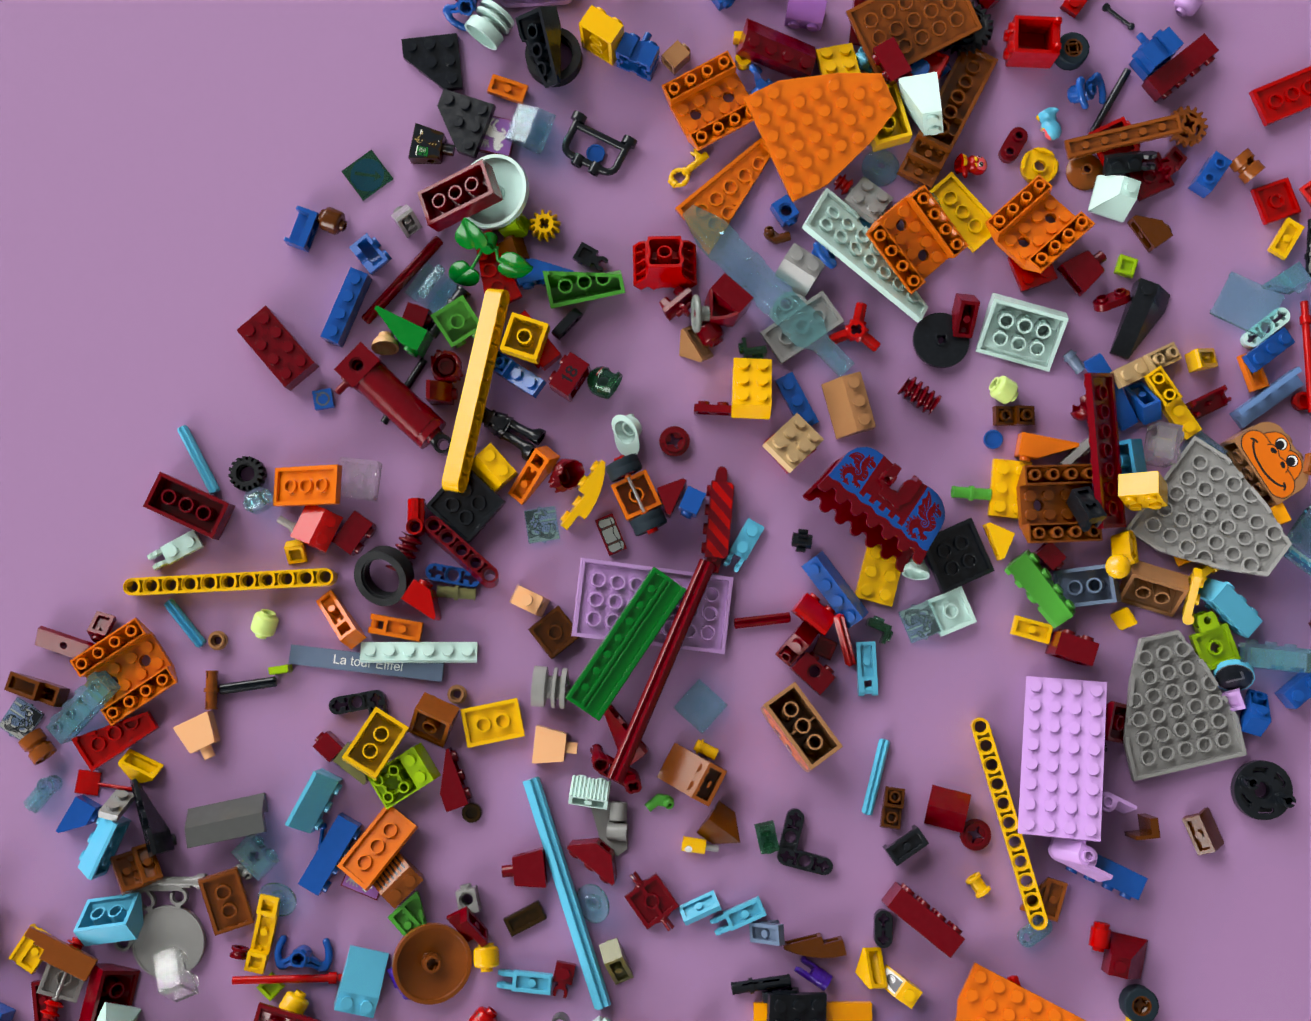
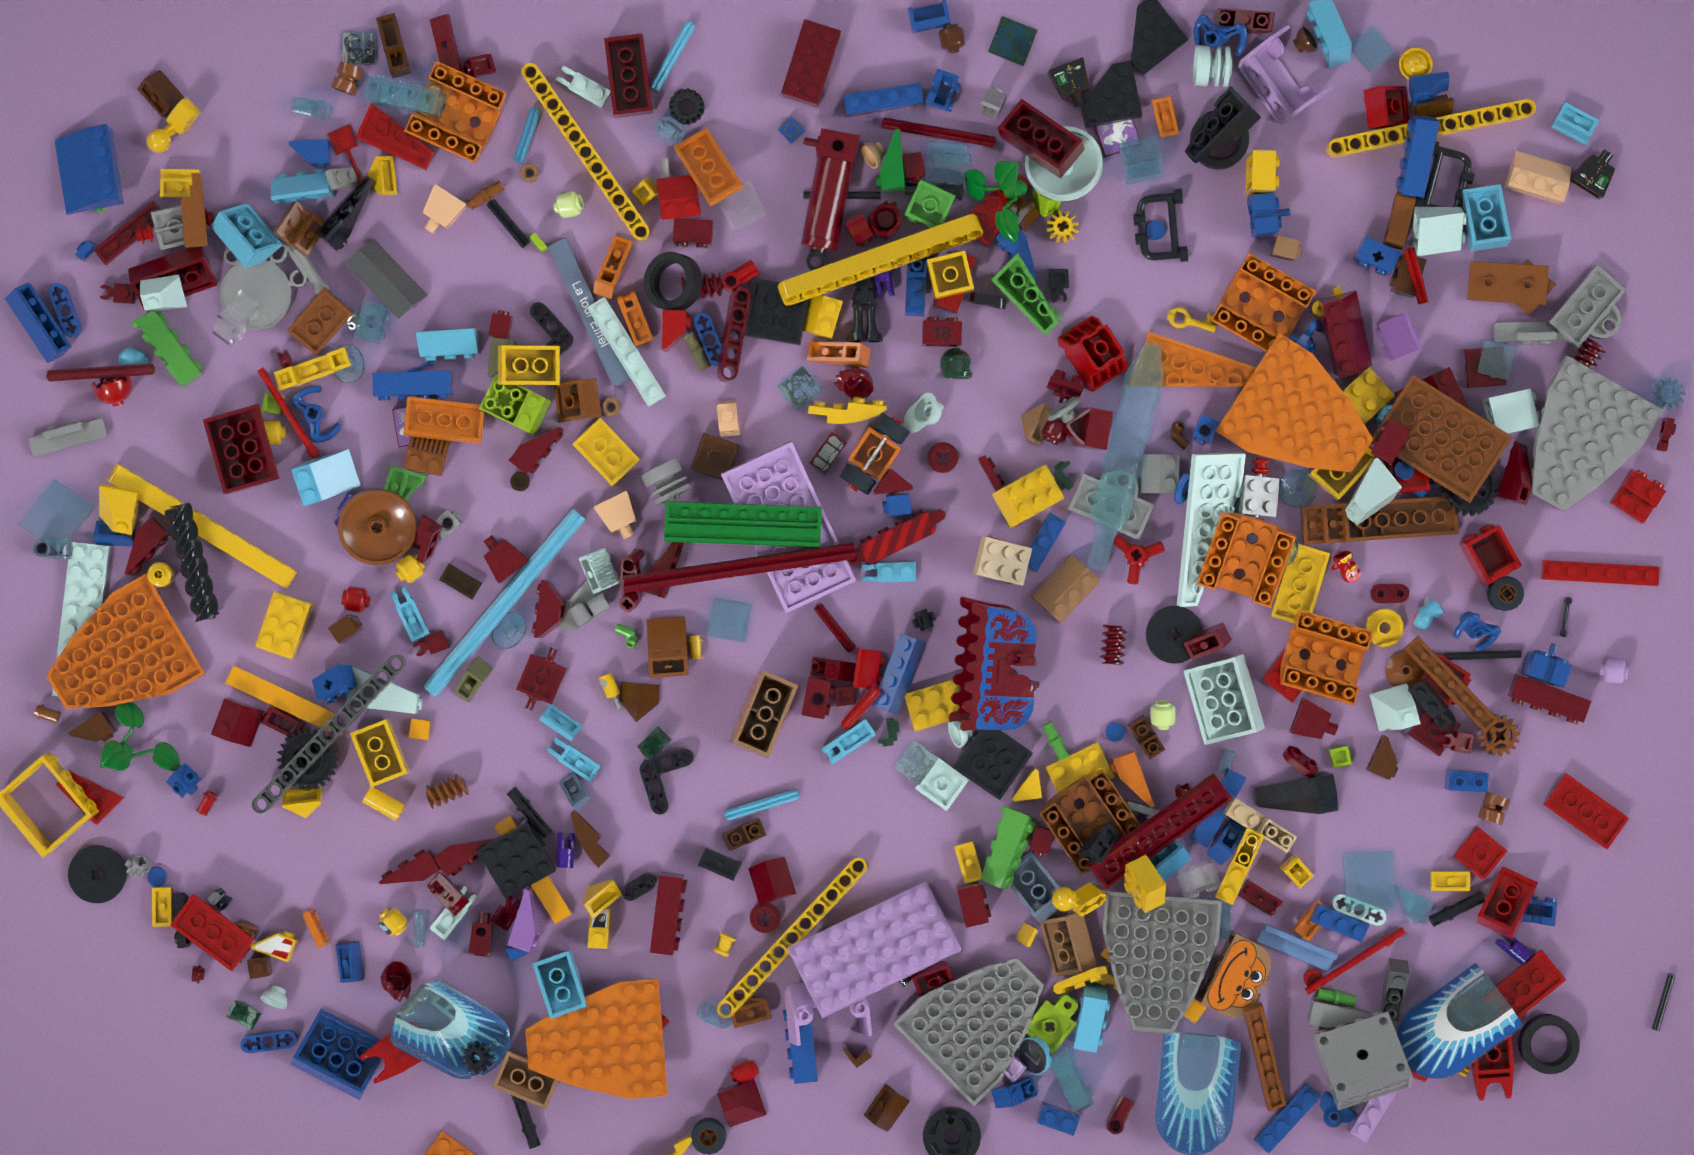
camera: 55 degrees right, 5 degrees up
(493, 397) = (884, 277): none -> dark purple hinge

